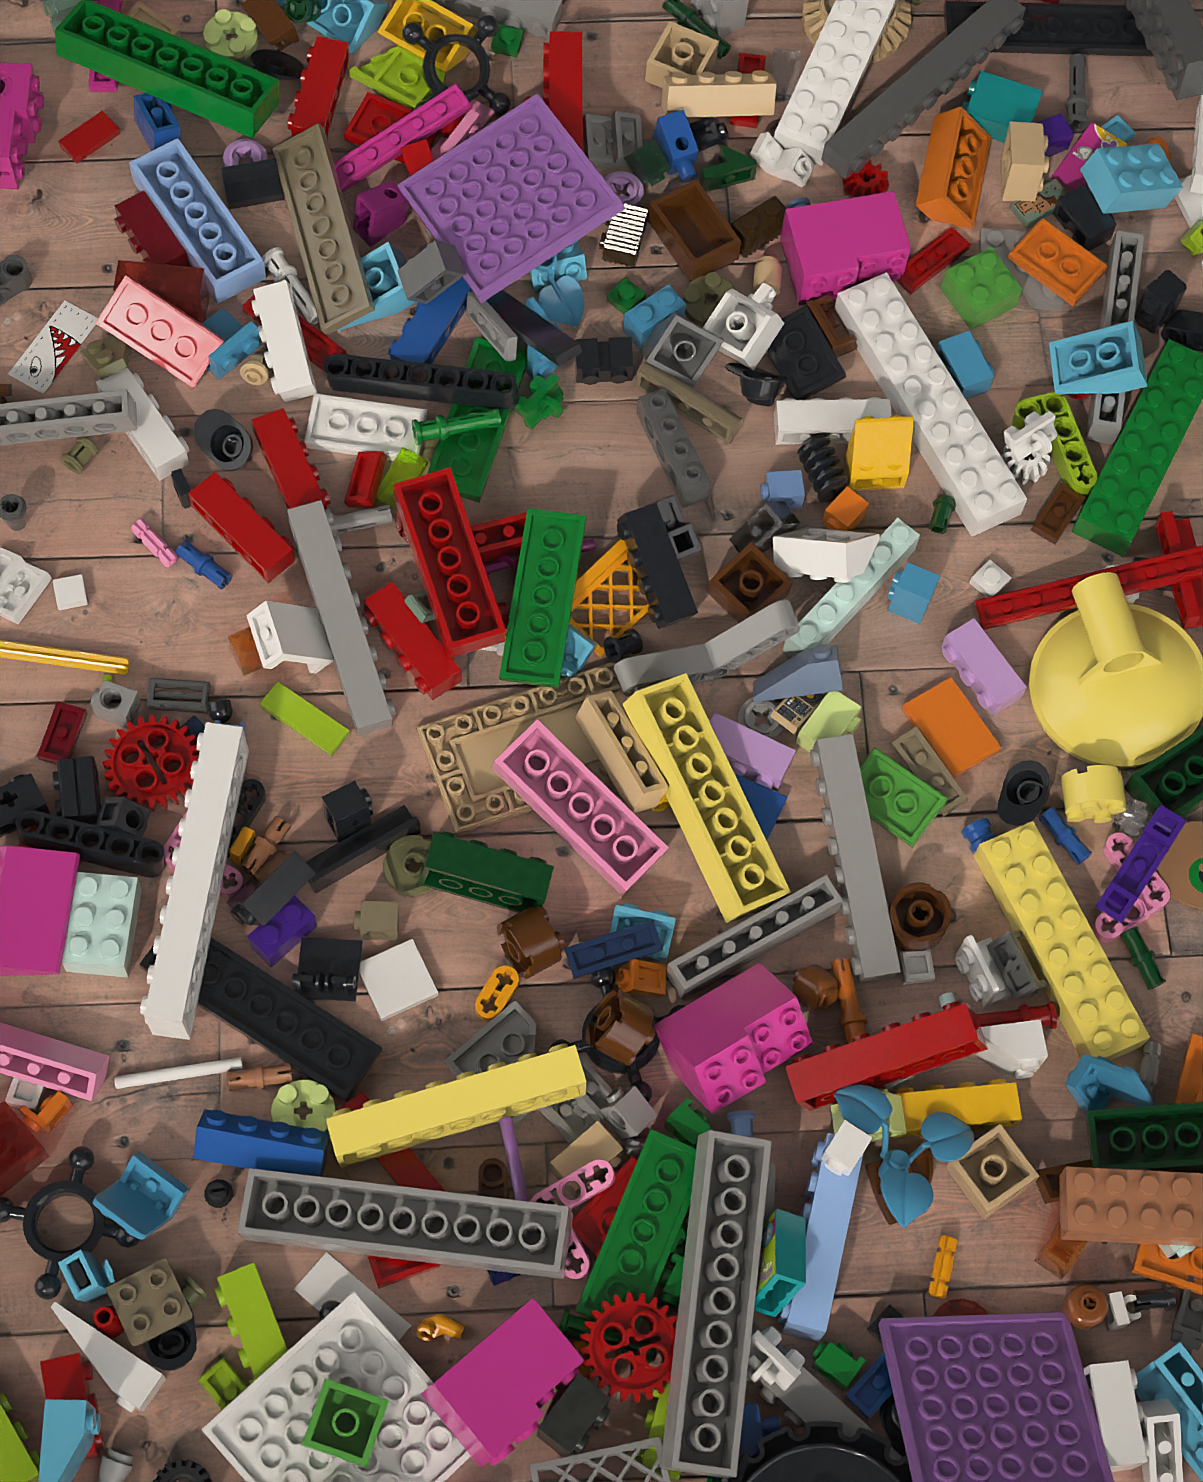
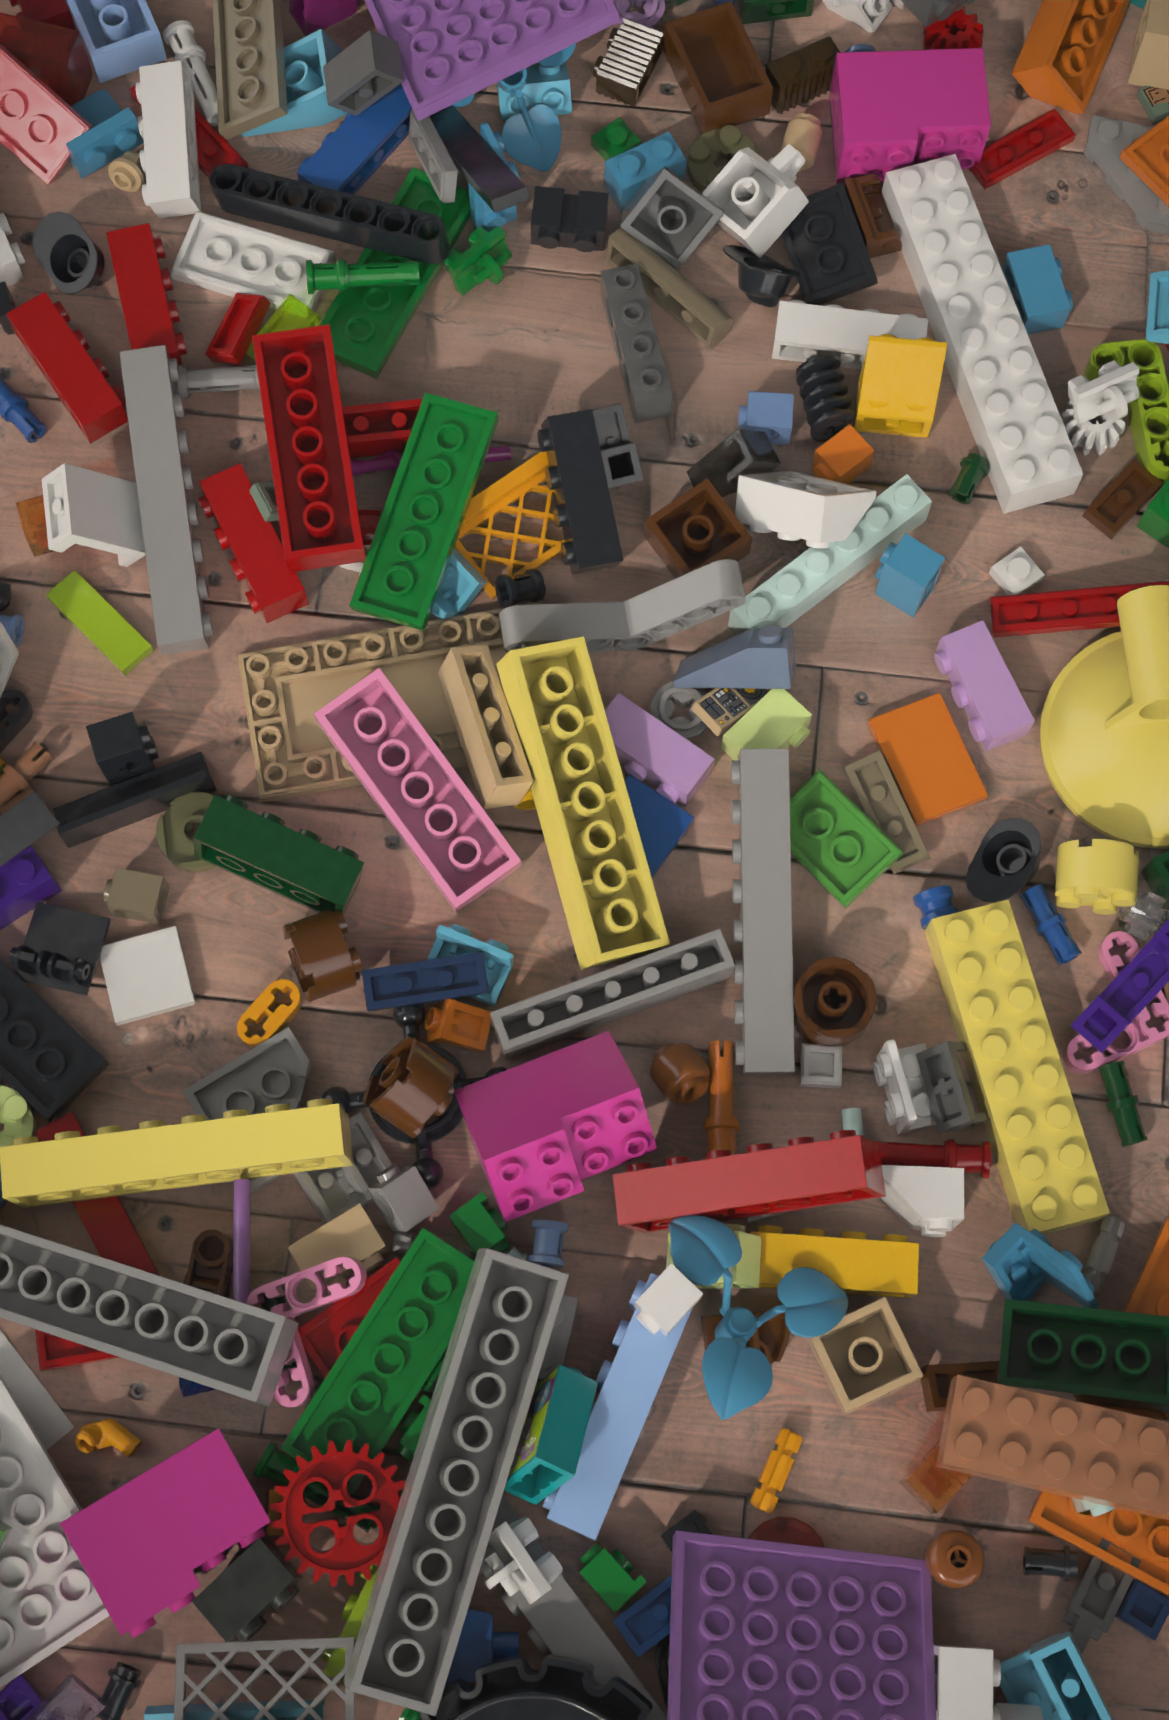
camera: 15 degrees right, 5 degrees up
(981, 288) = (1077, 192): bright green brick -> none
(1117, 1314) = (996, 1573): white tile -> none

